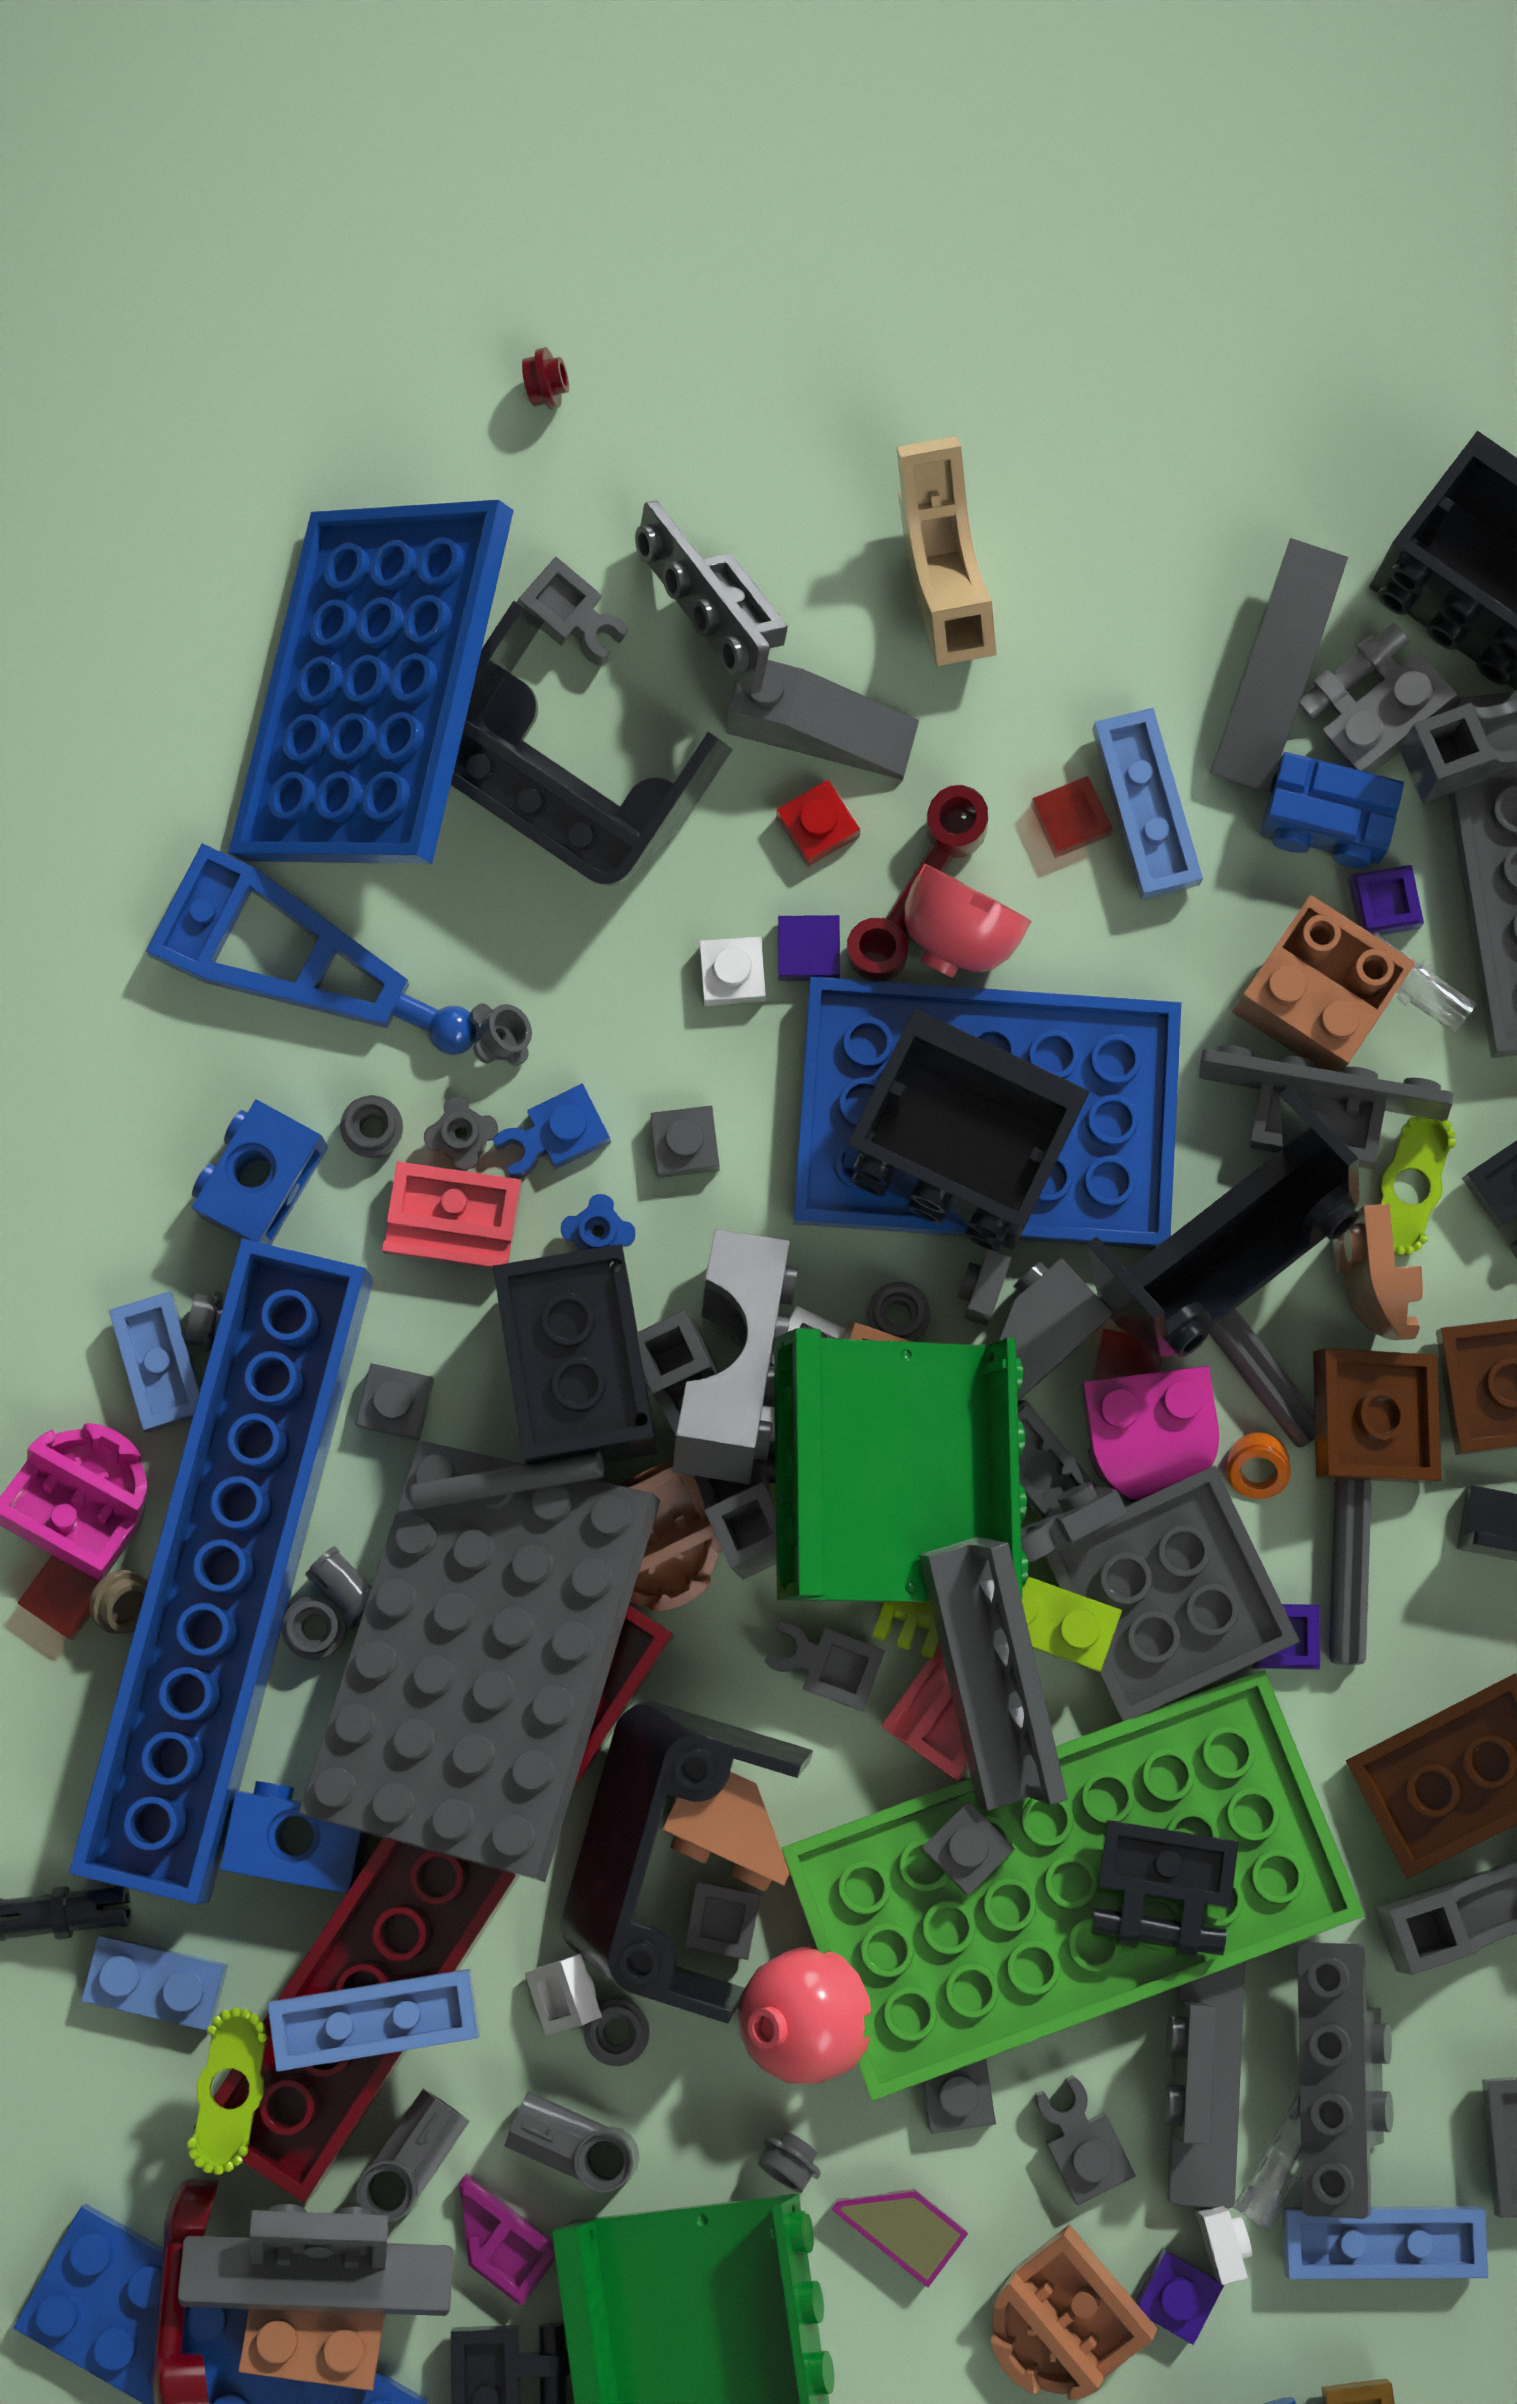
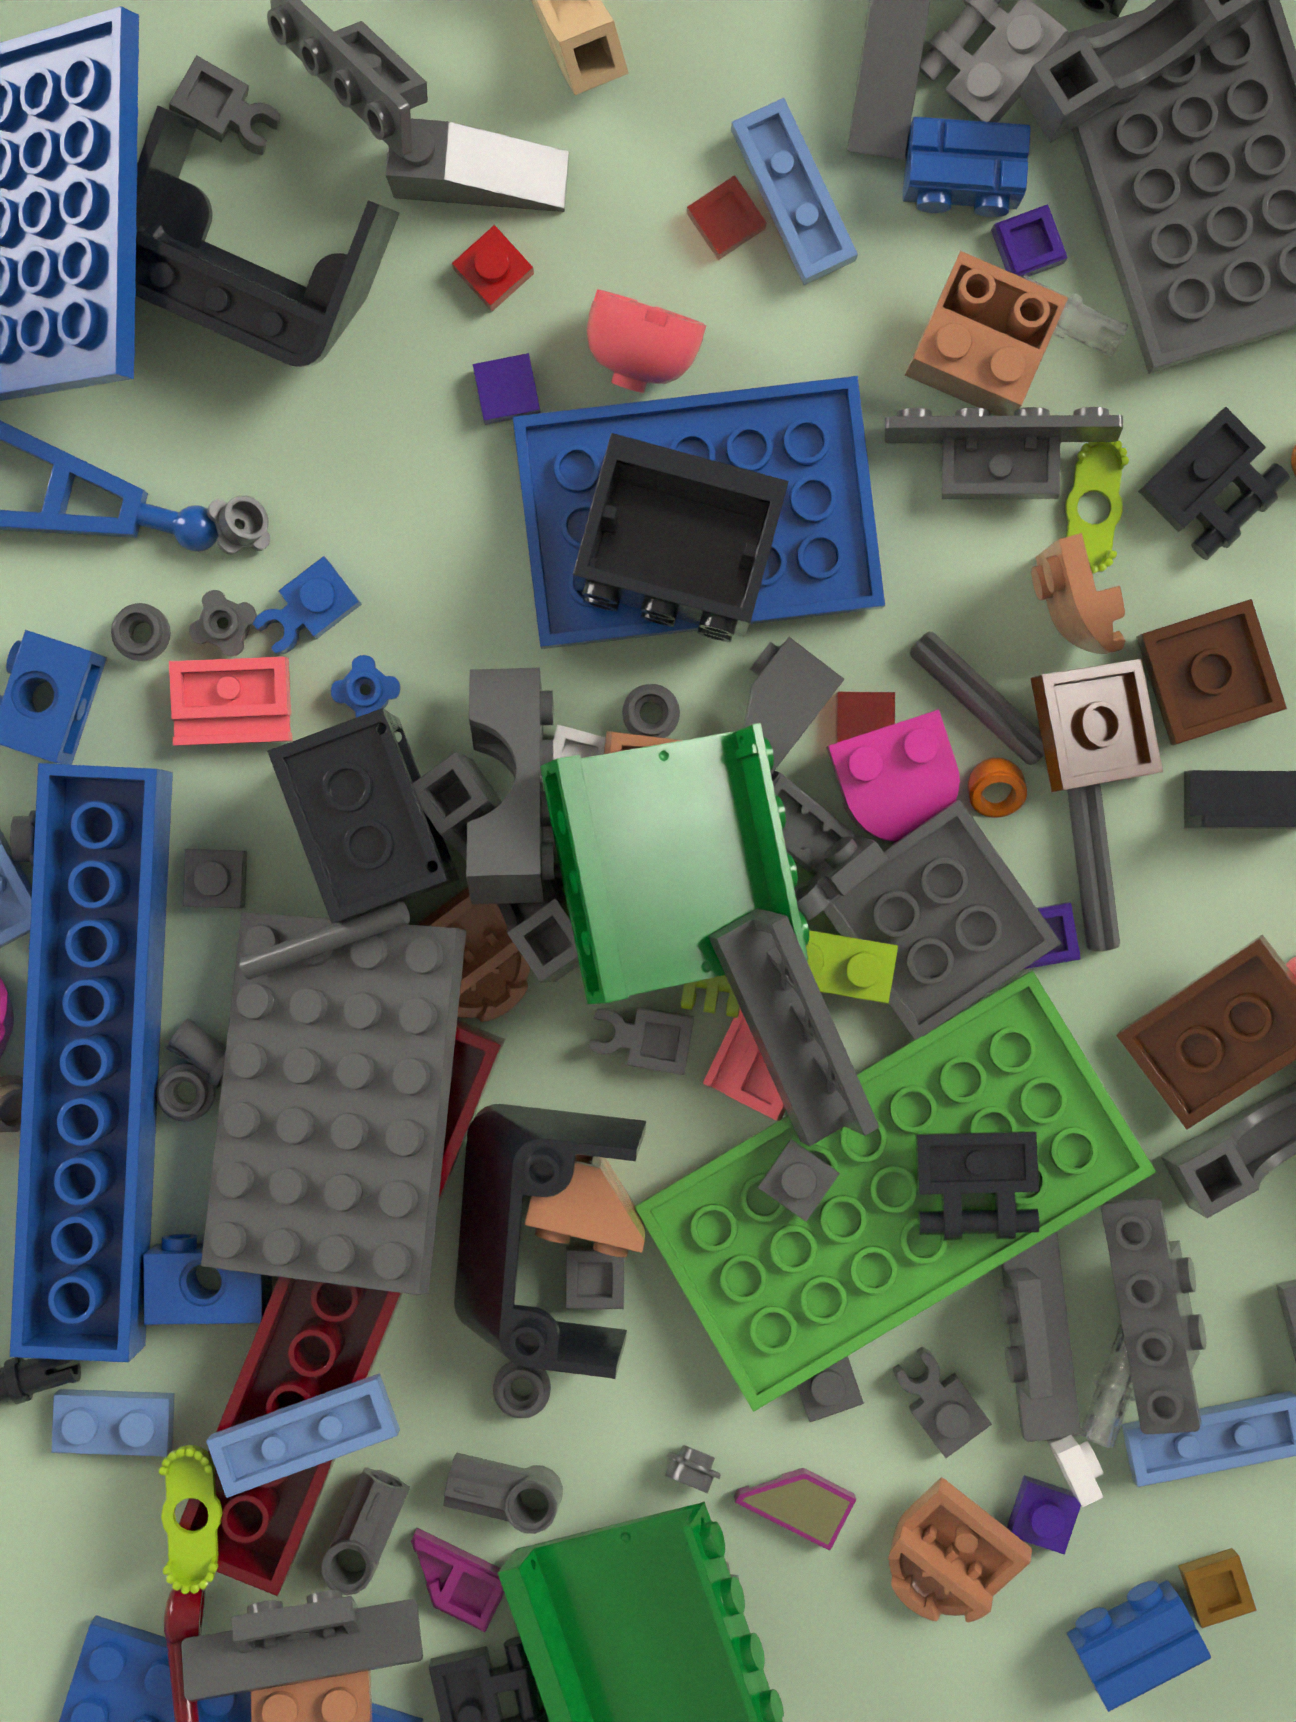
camera: 15 degrees left, 10 degrees up
(563, 1995) = (469, 1368): white plate -> none
(685, 1141) = (428, 591): dark grey plate -> none
(732, 971) = (441, 424): white plate -> none
(804, 2016) = (681, 1351): coral cylinder -> none
(879, 945) = (570, 373): dark red piece -> none
(983, 1285) = (722, 673): dark grey plate -> none
(1237, 1240) = (947, 590): black windscreen -> none

